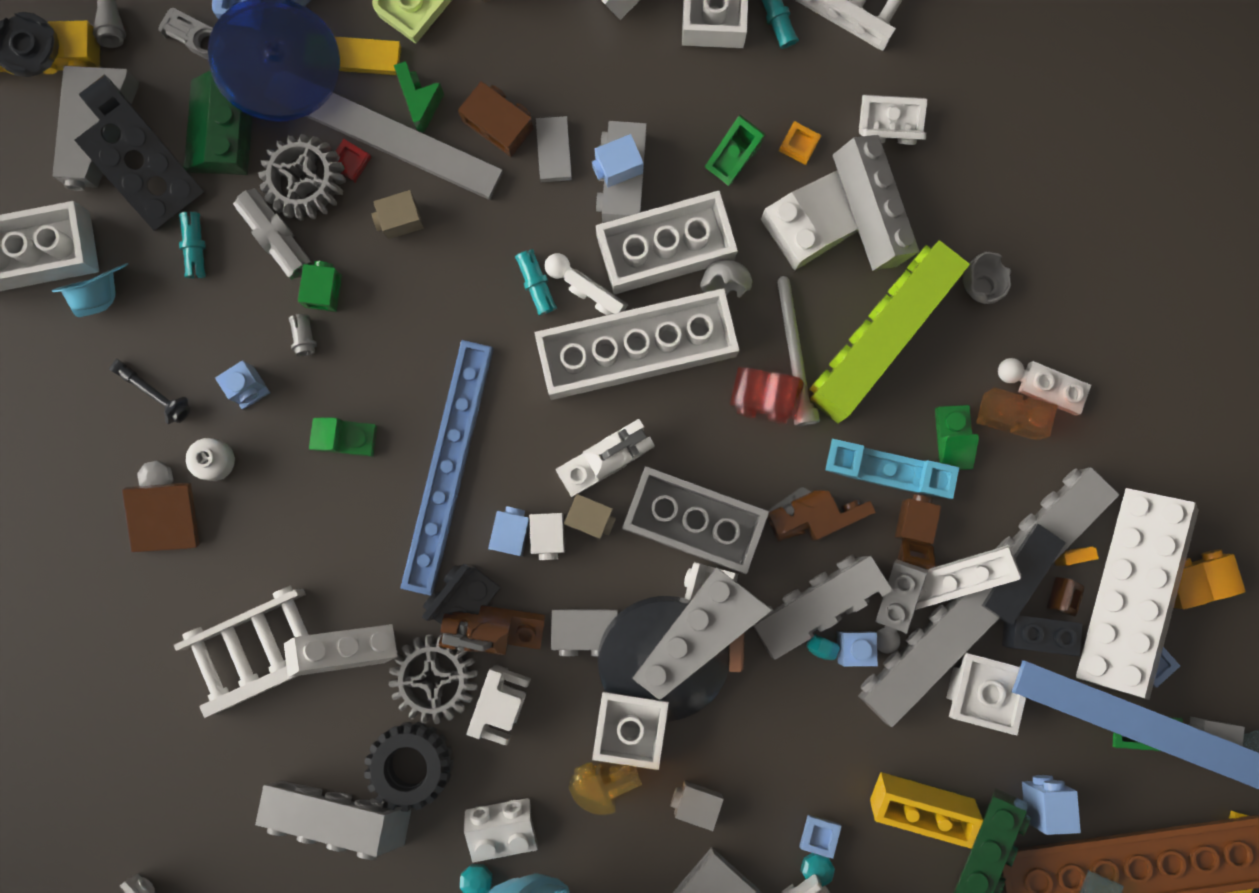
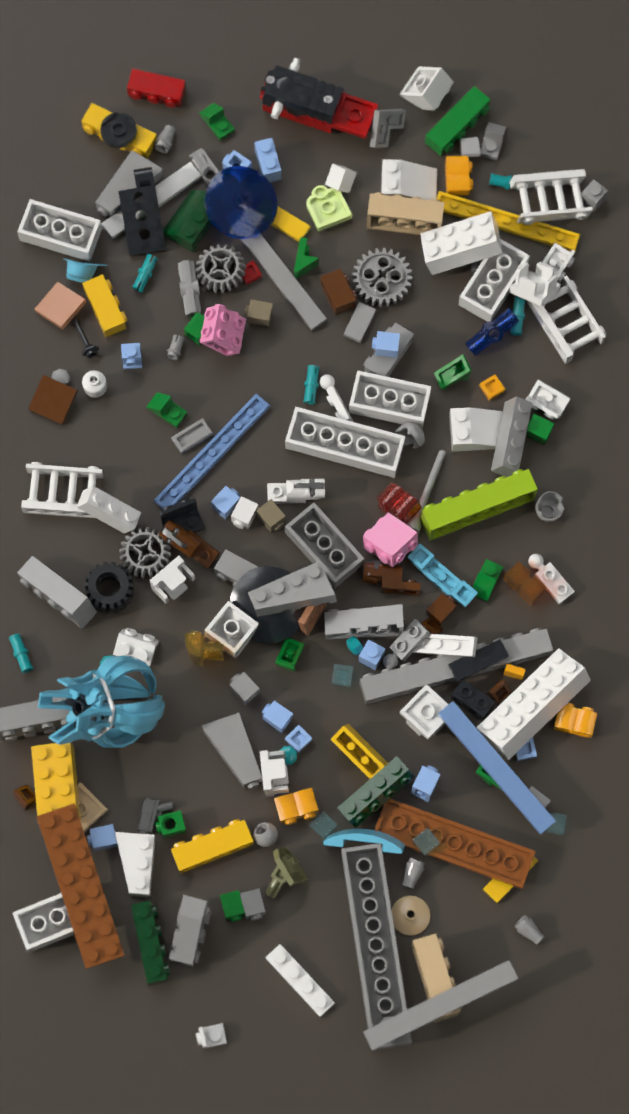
camera: 30 degrees right, 10 degrees down
(91, 364) = (60, 305): none -> nougat tile
(153, 105) = (165, 191): none -> white tile
(158, 328) = (105, 305): none -> yellow brick
(357, 271) = (223, 330): none -> bright pink brick
(402, 457) = (192, 436): none -> light grey tile
(522, 54) = (393, 288): none -> light grey gear
(737, 717) = (289, 654): none -> green slope
(757, 59) = (483, 339): none -> clear blue piece
(770, 820) = (277, 716): none -> light blue brick
(788, 459) = (390, 540): none -> bright pink brick
(829, 702) = (342, 675): none -> clear light blue plate
(909, 168) = (539, 429): none -> green brick

